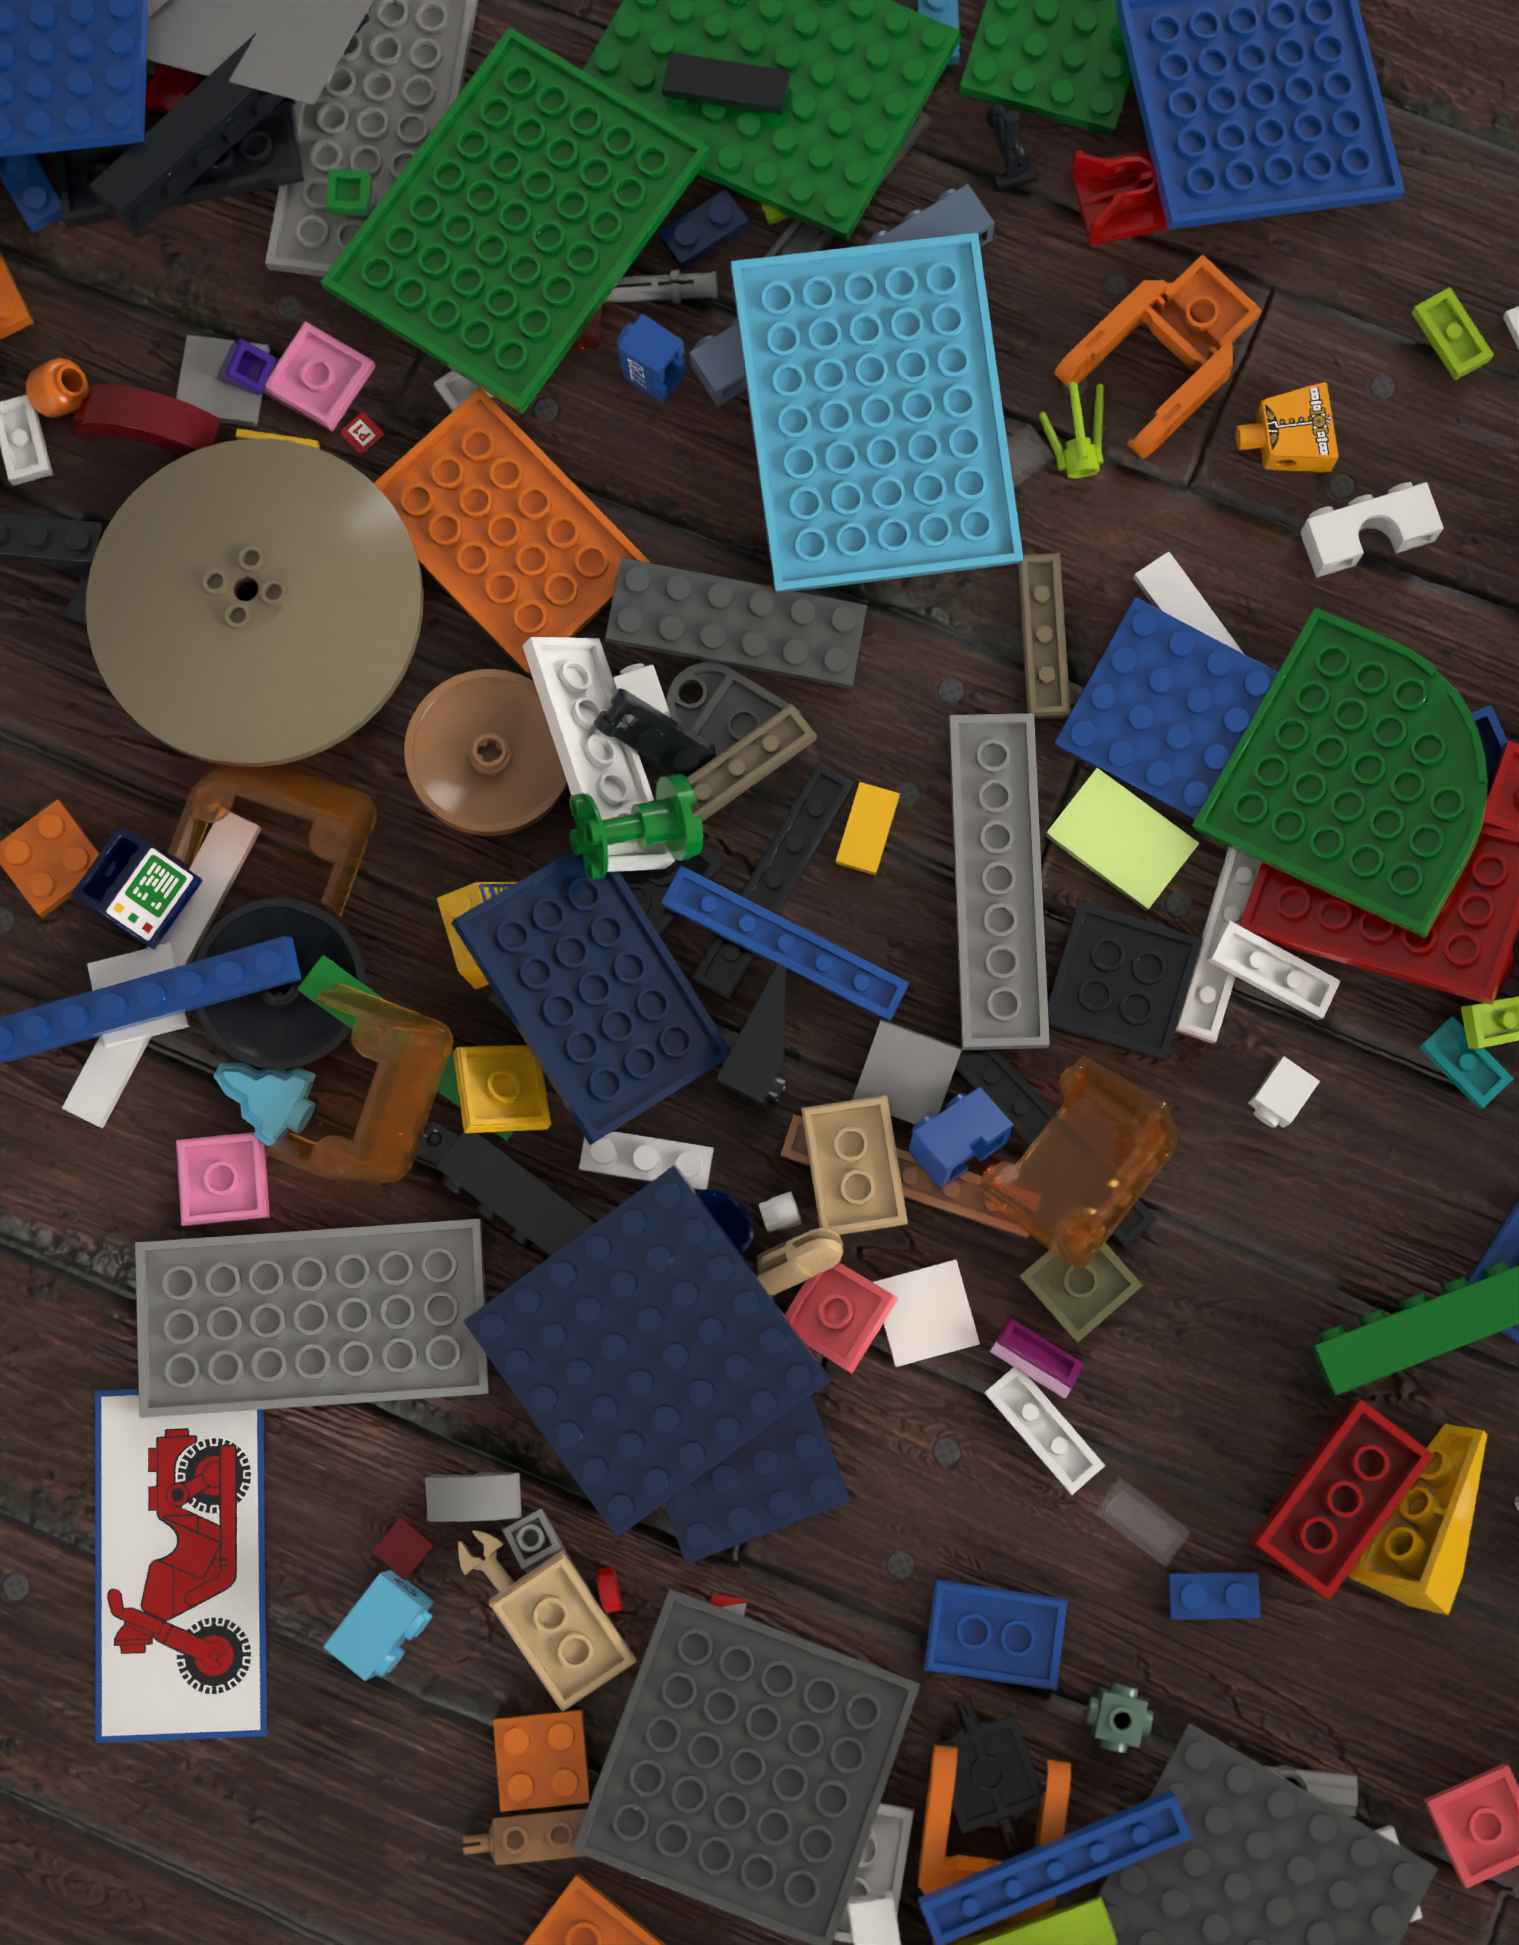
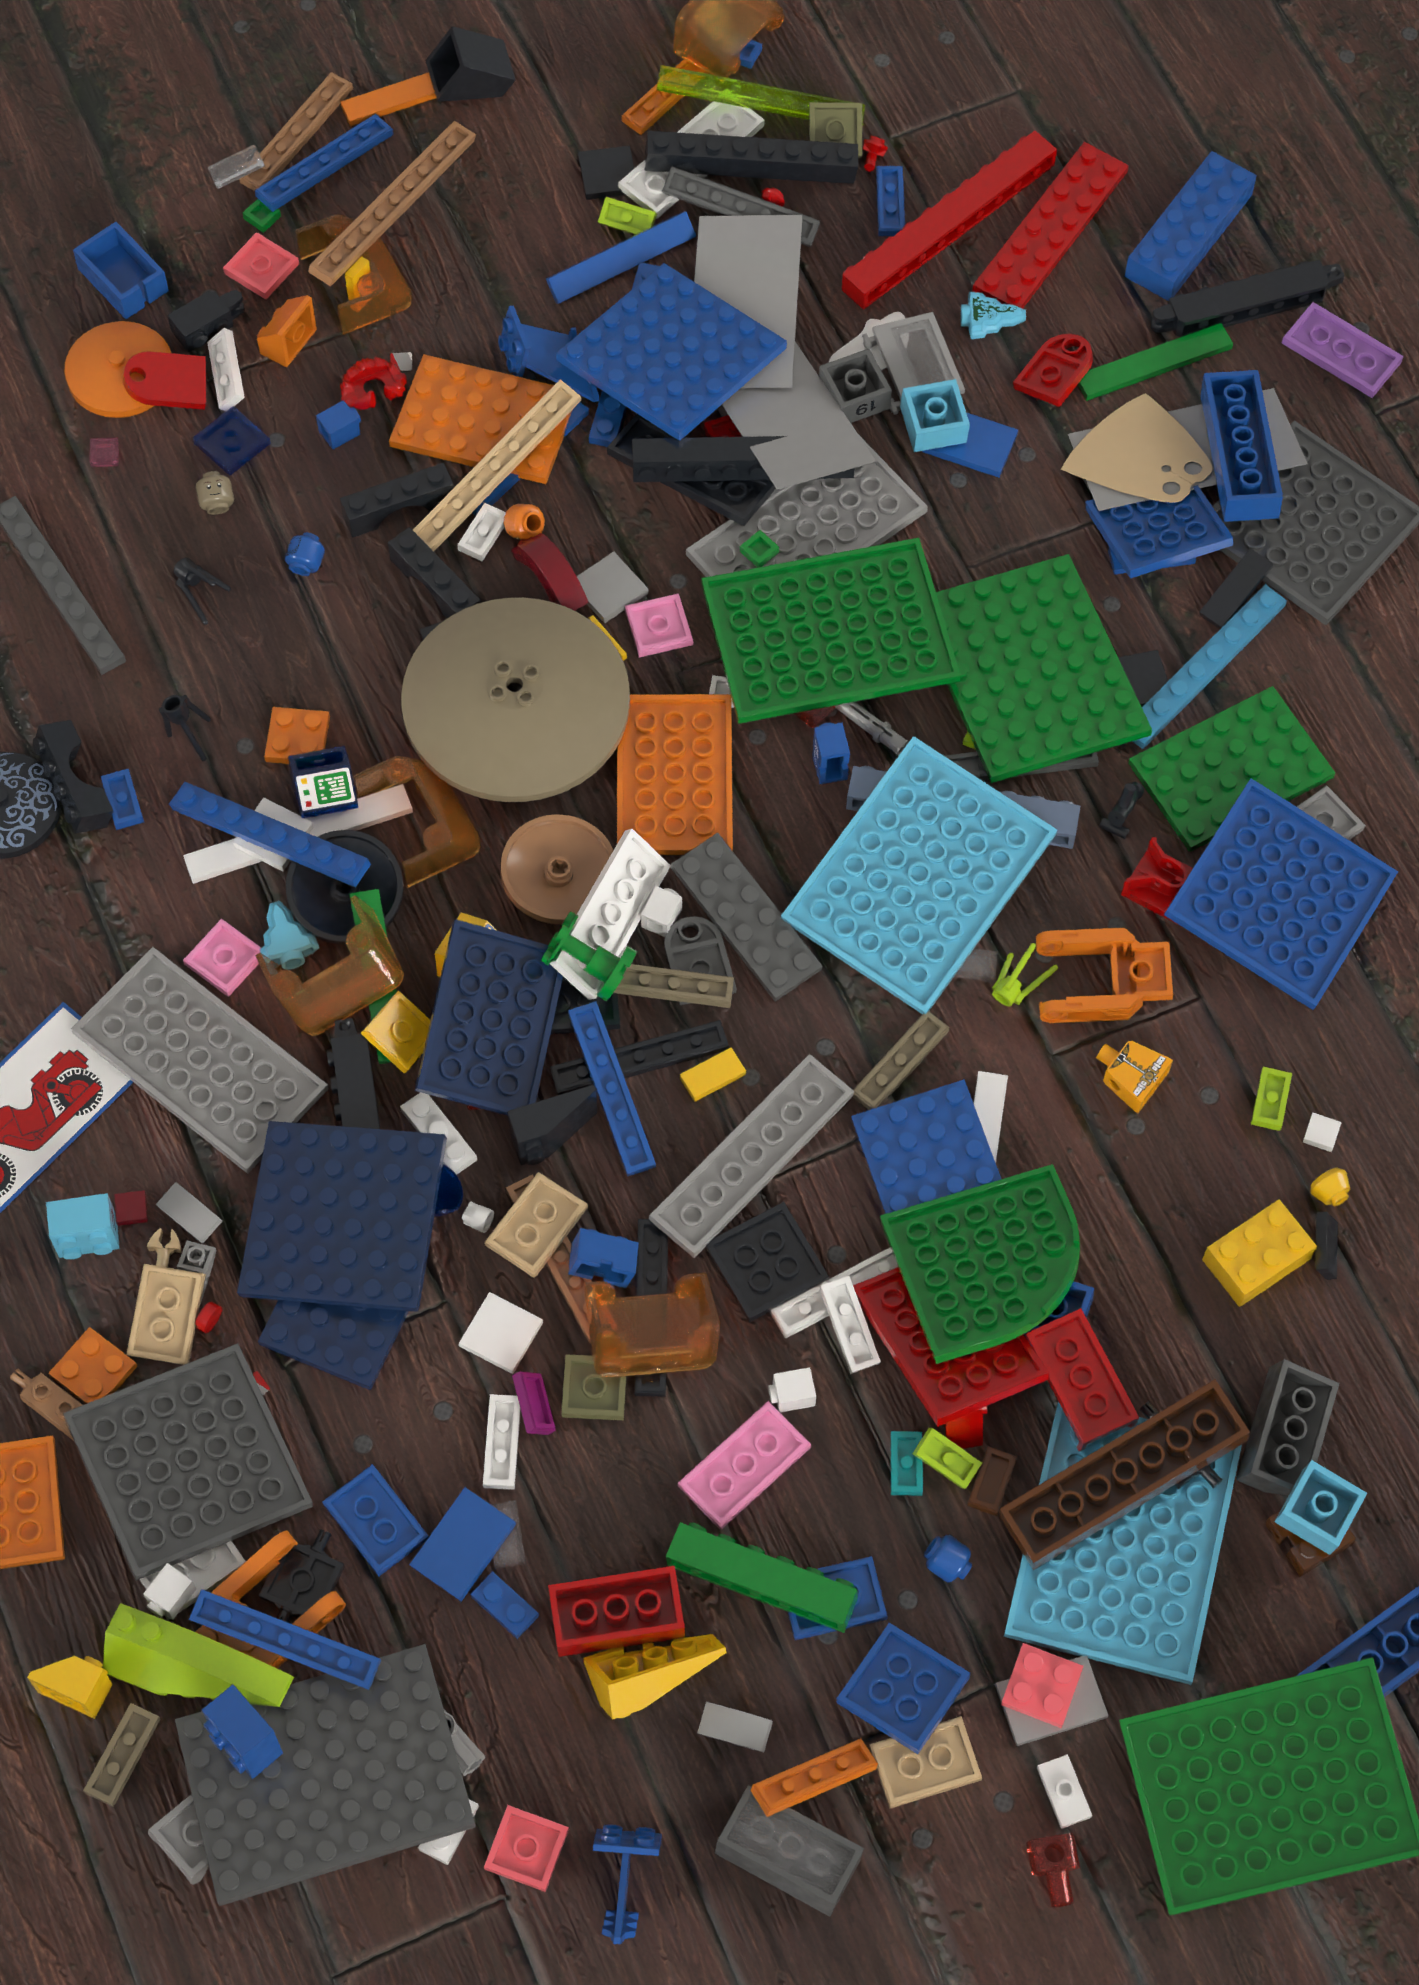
camera: 35 degrees right, 15 degrees down
(246, 367) = (626, 590): dark purple slope -> none
(361, 433) = (653, 670): red sticker -> none
(654, 734) = (648, 929): black plate -> none
(703, 229) = (925, 718): dark blue plate -> none
(725, 83) = (1002, 654): black tile -> none
(799, 1259) = (461, 1243): tan arm -> none
(840, 1314) = (456, 1288): coral plate -> none
(909, 1070) = (612, 1205): light grey tile -> none
(1106, 1705) = (394, 1623): sand green brick -> none
(1113, 1575) = (463, 1544): none -> blue tile
(1121, 839) = (839, 1195): yellowish green tile -> none
(1306, 1217) = (744, 1465): none -> bright pink tile
(1403, 515) = (1107, 1141): white arch -> none

